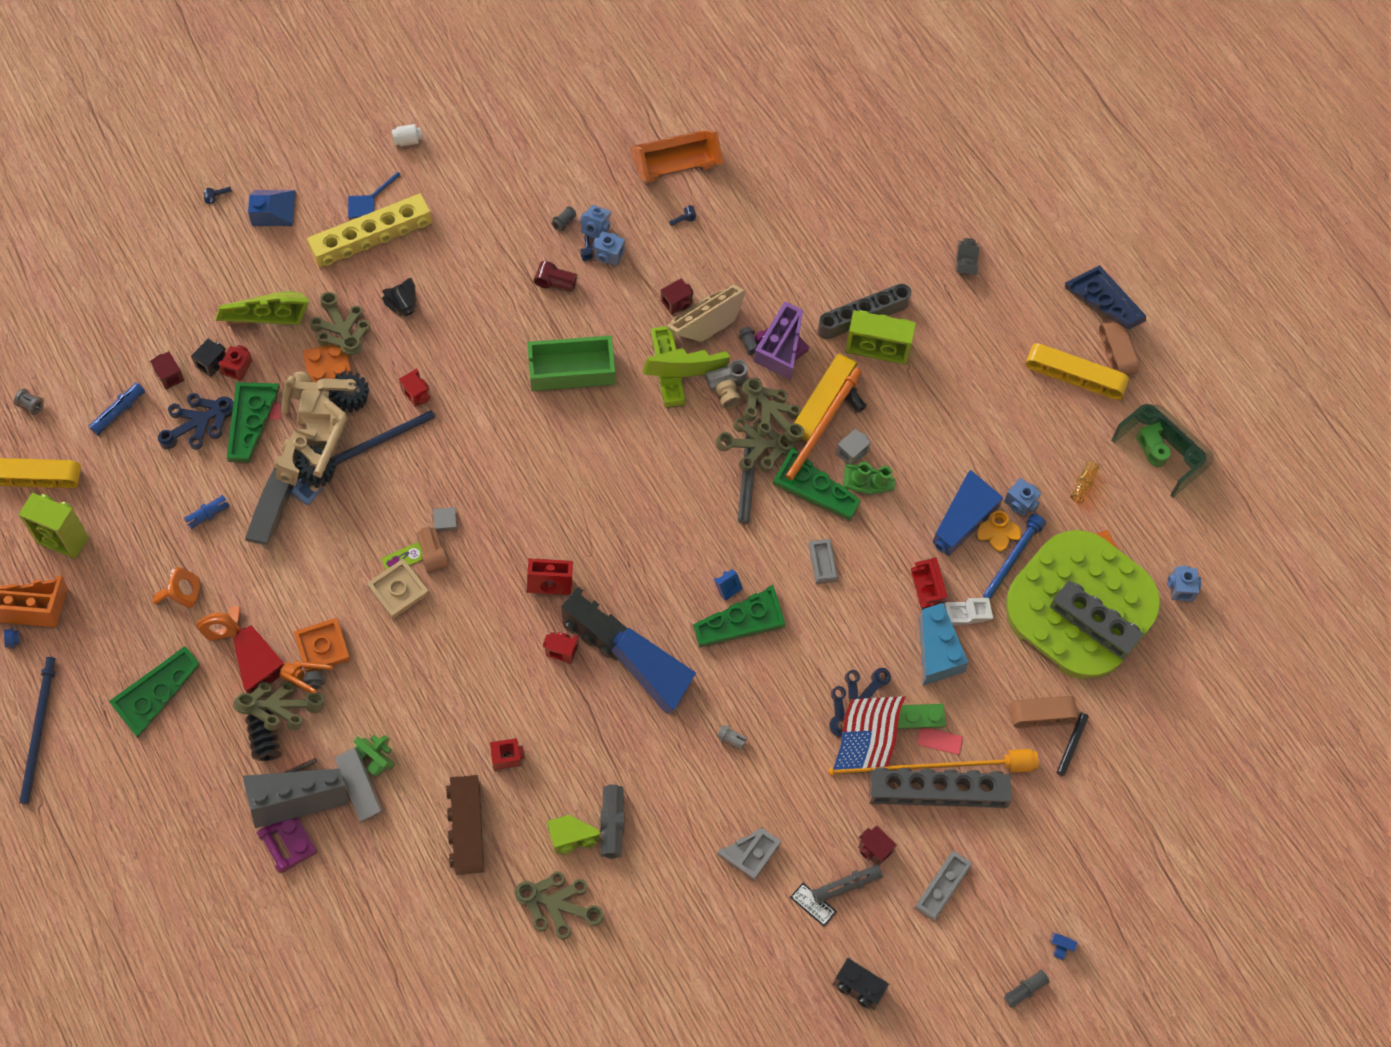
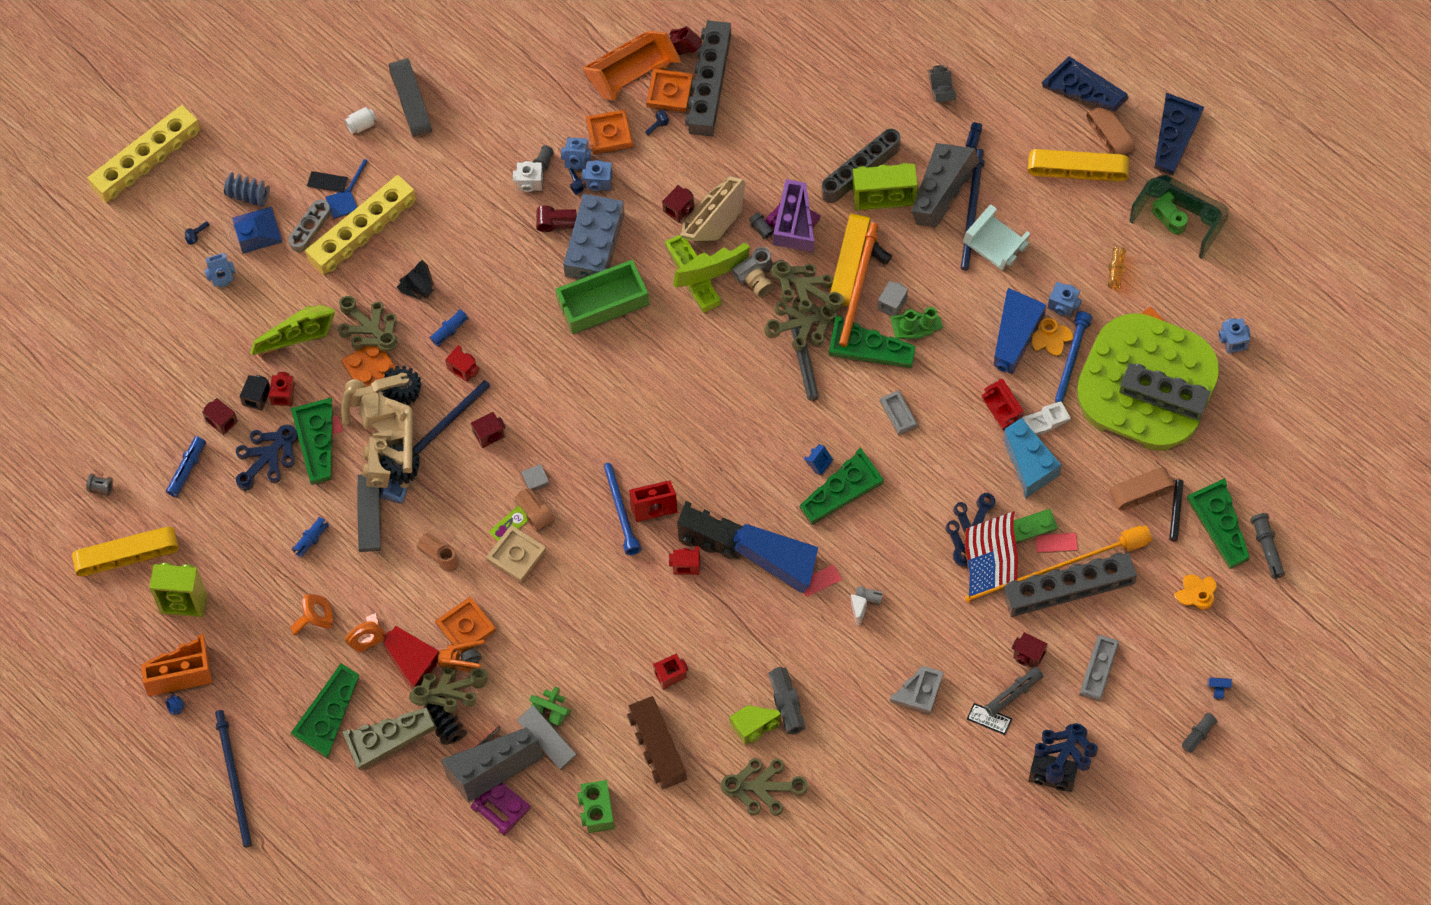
camera: 10 degrees left, 0 degrees up
(193, 736) = (379, 740): none -> olive wing
(196, 109) = (133, 154): none -> light yellow brick
(221, 233) = (219, 263): none -> medium blue brick
(276, 167) = (246, 191): none -> sand blue piece
(323, 563) = (438, 551): none -> nougat piece
(325, 209) = (310, 216): none -> light grey beam
(355, 182) = (327, 181): none -> black sticker
(386, 873) = (598, 806): none -> bright green brick
(416, 350) = (449, 327): none -> blue pin
(416, 458) = (488, 429): none -> dark red brick
(459, 126) = (410, 97): none -> dark grey beam
(514, 614) = (631, 544): none -> blue piece
(543, 230) = (528, 176): none -> white brick
(584, 303) = (593, 236): none -> sand blue brick
(635, 211) = (609, 131): none -> orange plate
(691, 706) = (822, 580): none -> coral sticker
(705, 189) = (669, 90): none -> orange plate
(718, 747) = (859, 607): none -> white slope
(734, 147) = (685, 40): none -> dark red piece
(762, 162) = (704, 123): none -> dark grey brick
(896, 949) = (1074, 734): none -> dark blue plant
(937, 349) = (942, 180): none -> dark grey wedge
(972, 419) = (995, 239): none -> light aqua panel
(979, 341) = (972, 207): none -> dark blue bar
(980, 319) = (974, 135): none -> dark blue axle
(1068, 833) = (1195, 589): none -> light orange plate
(1113, 765) = (1217, 516): none -> green wing
(1157, 798) = (1265, 536): none -> dark grey pin
(1184, 365) = (1176, 130): none -> dark blue wing

